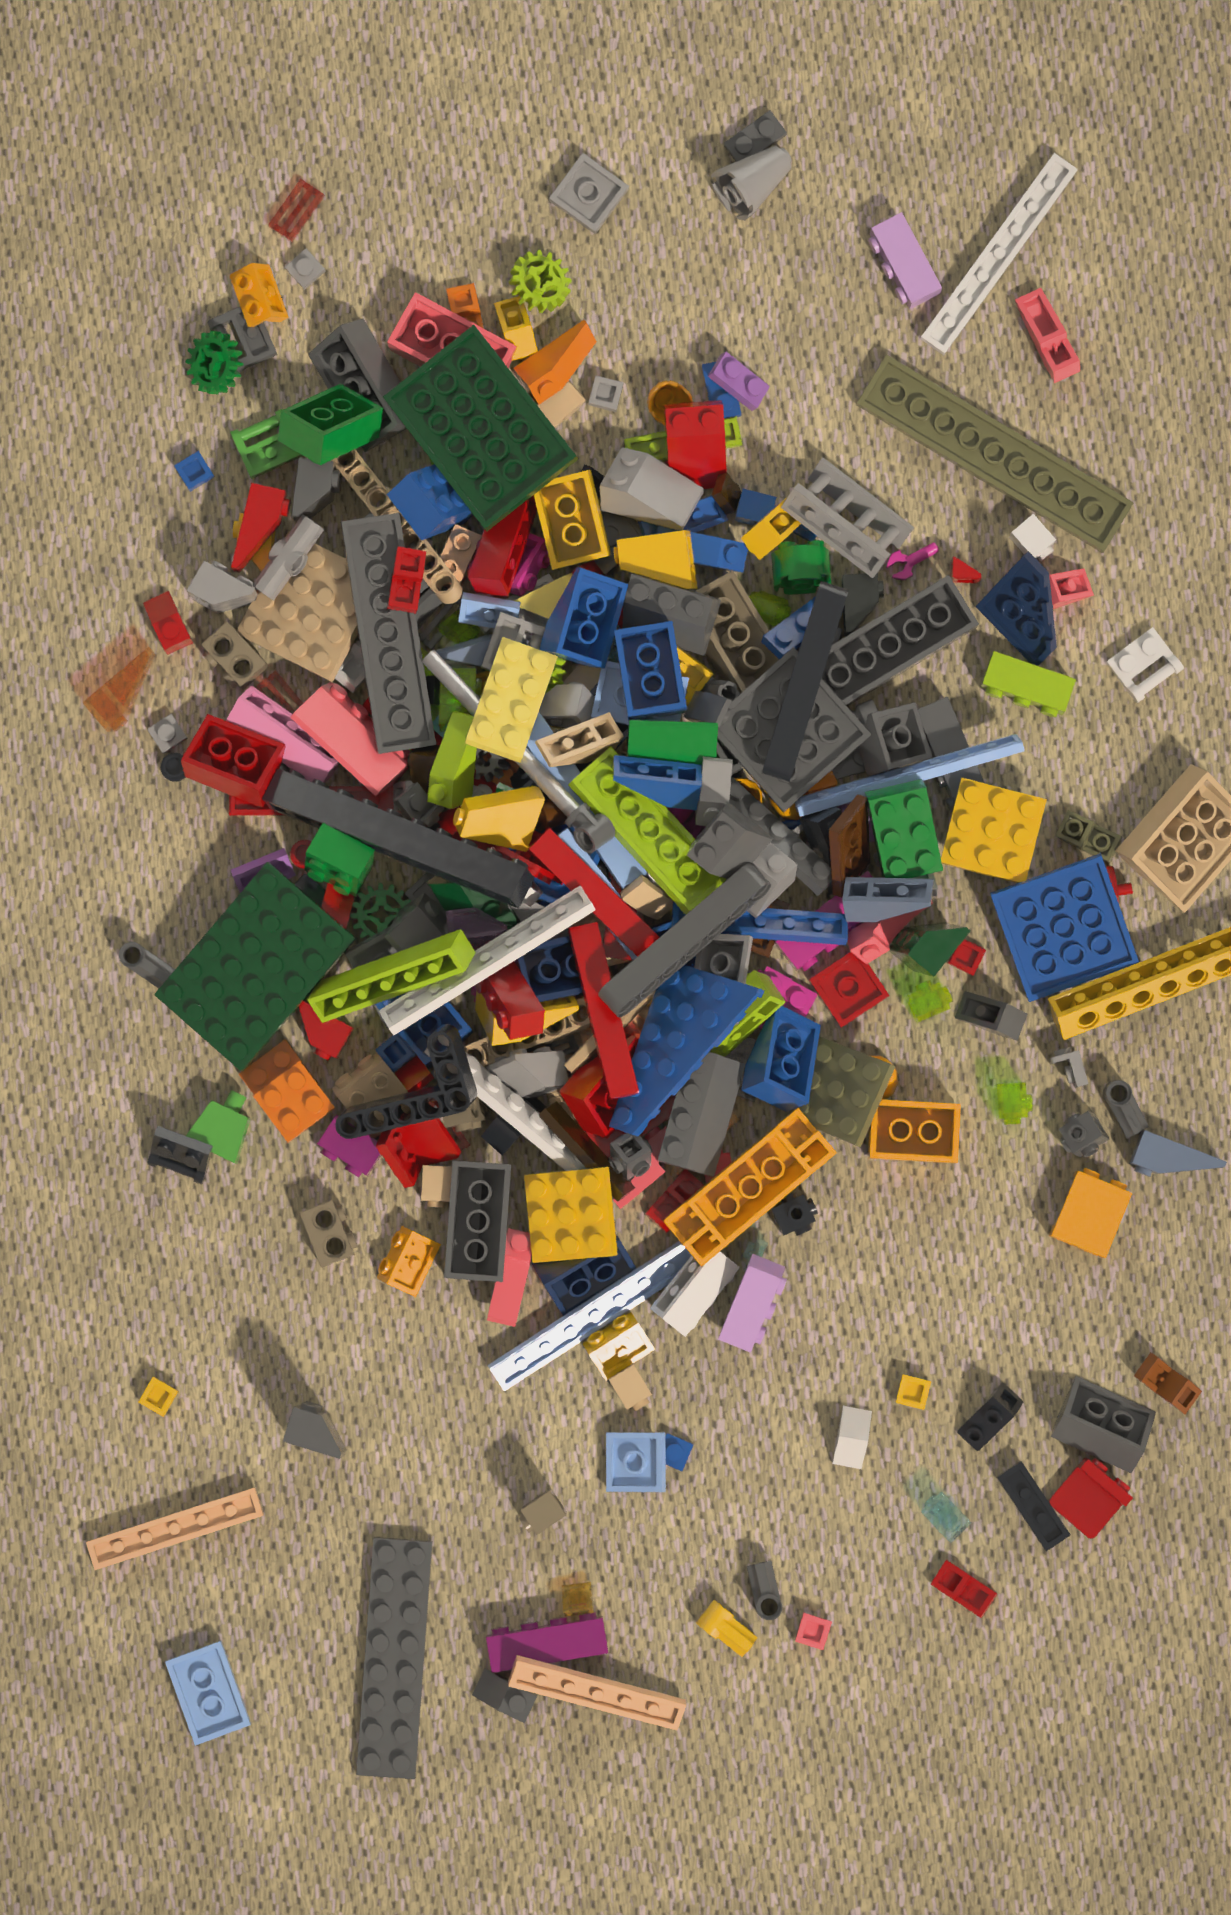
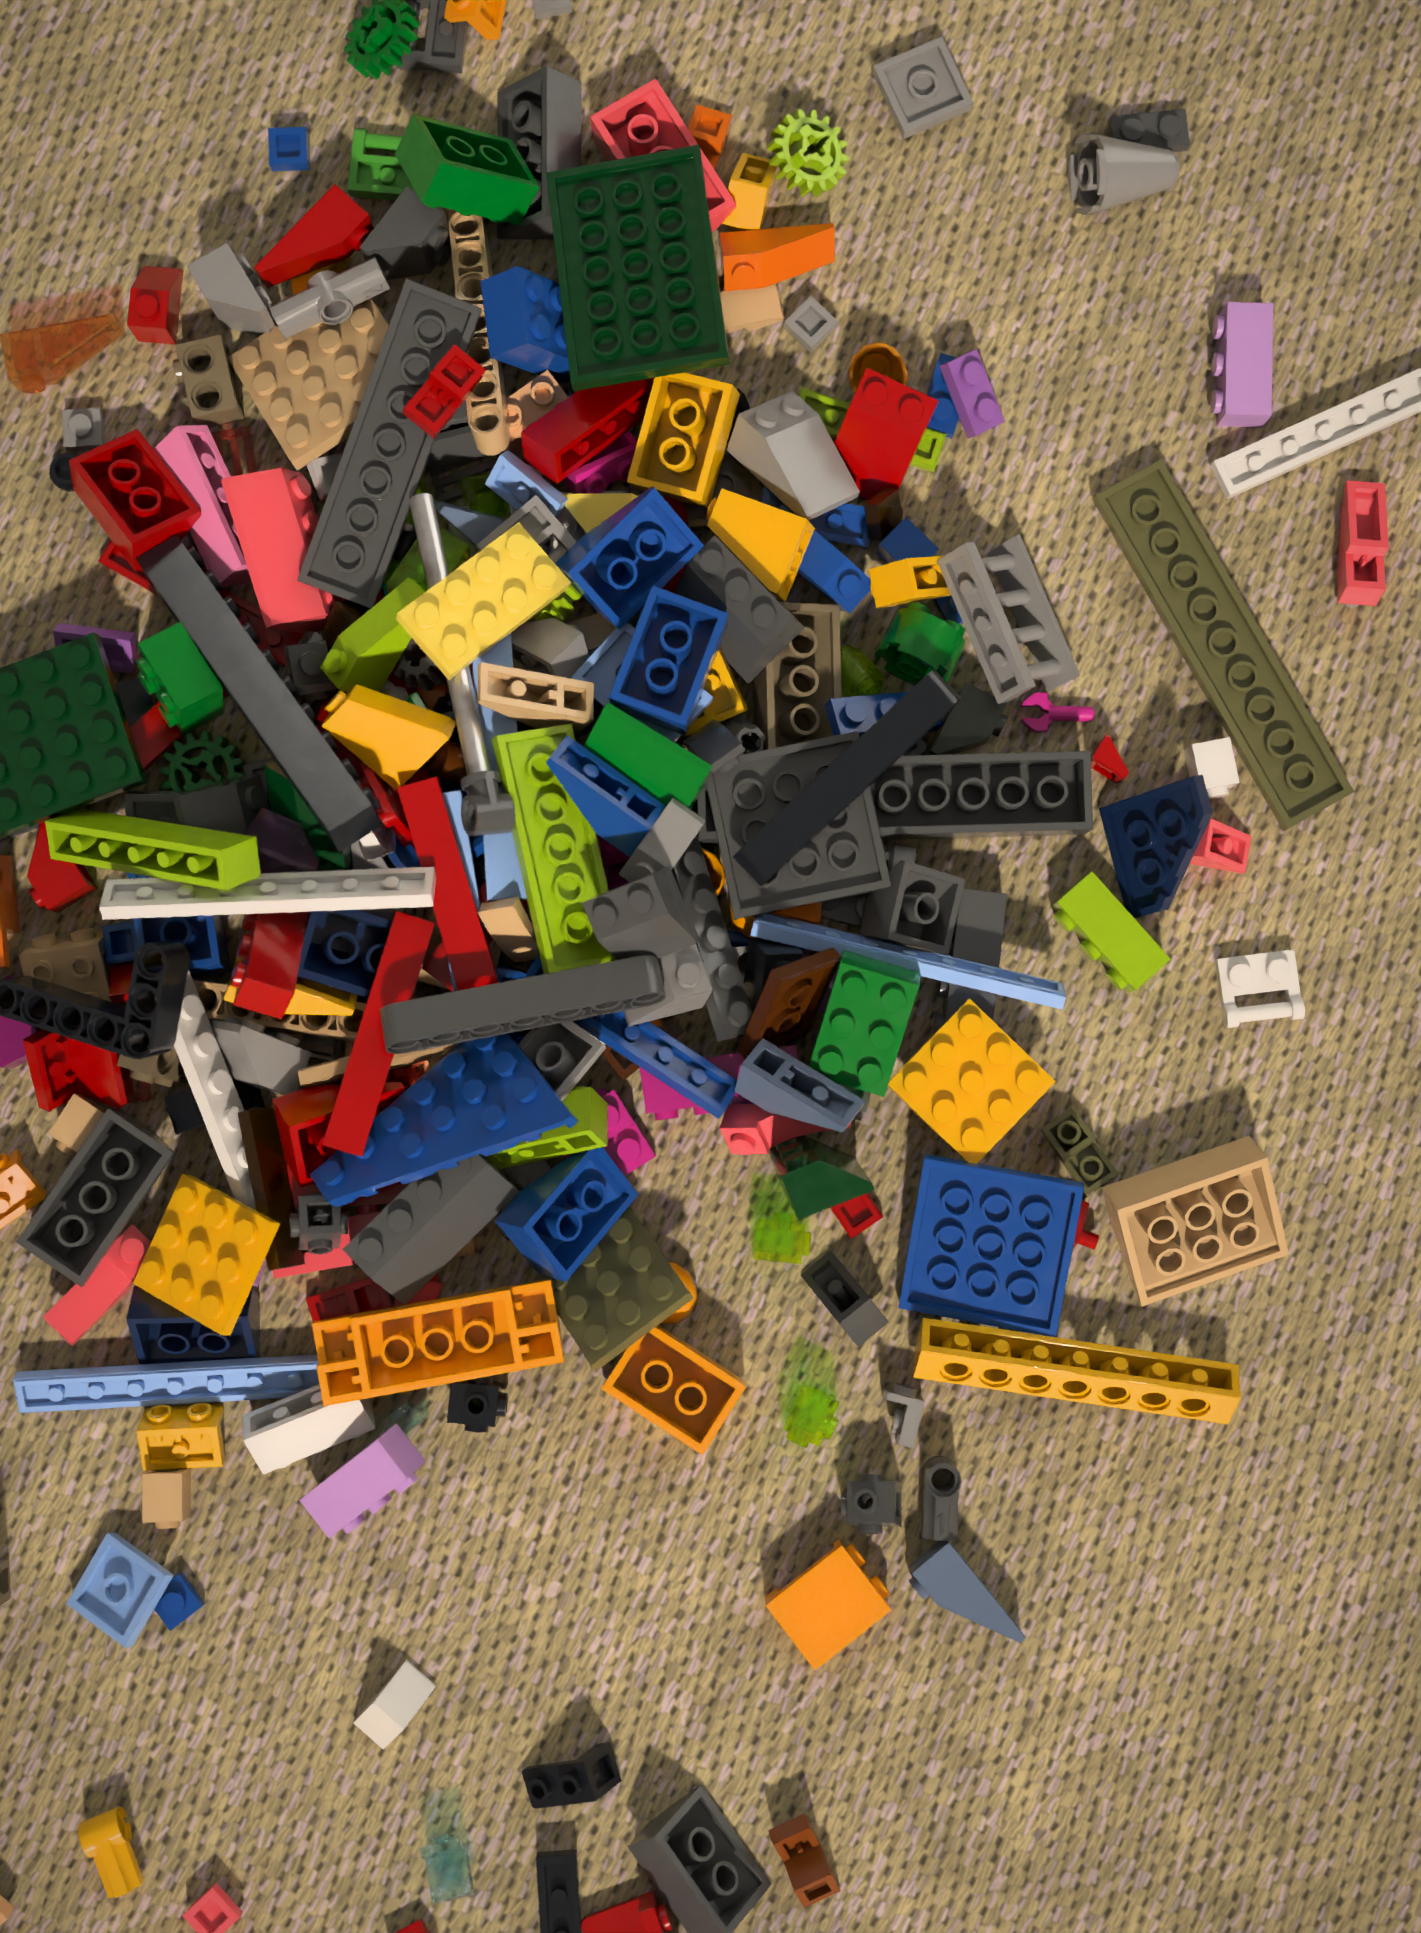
camera: 25 degrees right, 0 degrees up
(764, 1586) = (183, 1832): dark grey piece -> none
(848, 988) = (695, 1170): red plate -> none
(913, 1392) = (496, 1694): yellow plate -> none

